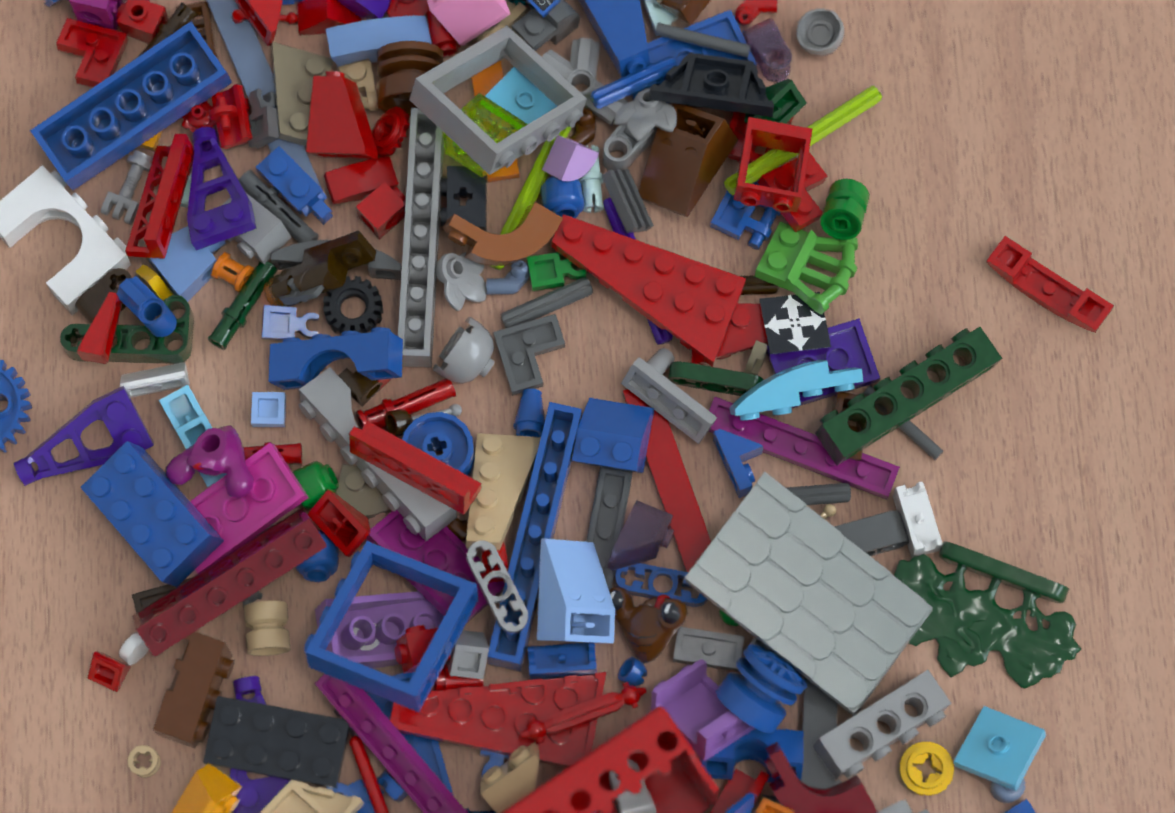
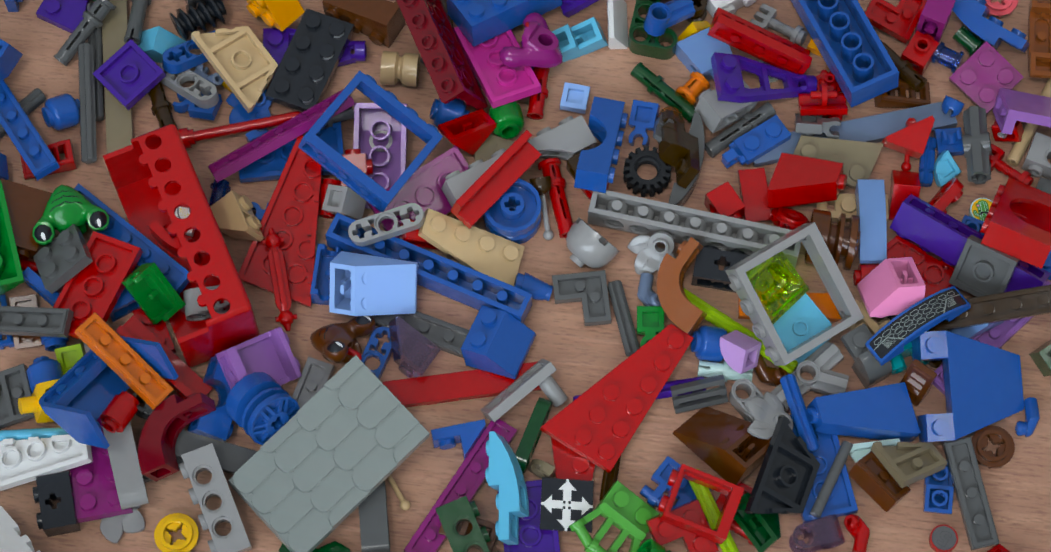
camera: 100 degrees right, 5 degrees down
(632, 672) = (306, 326): blue hinge -> none
(823, 493) = (421, 484): dark grey axle -> none

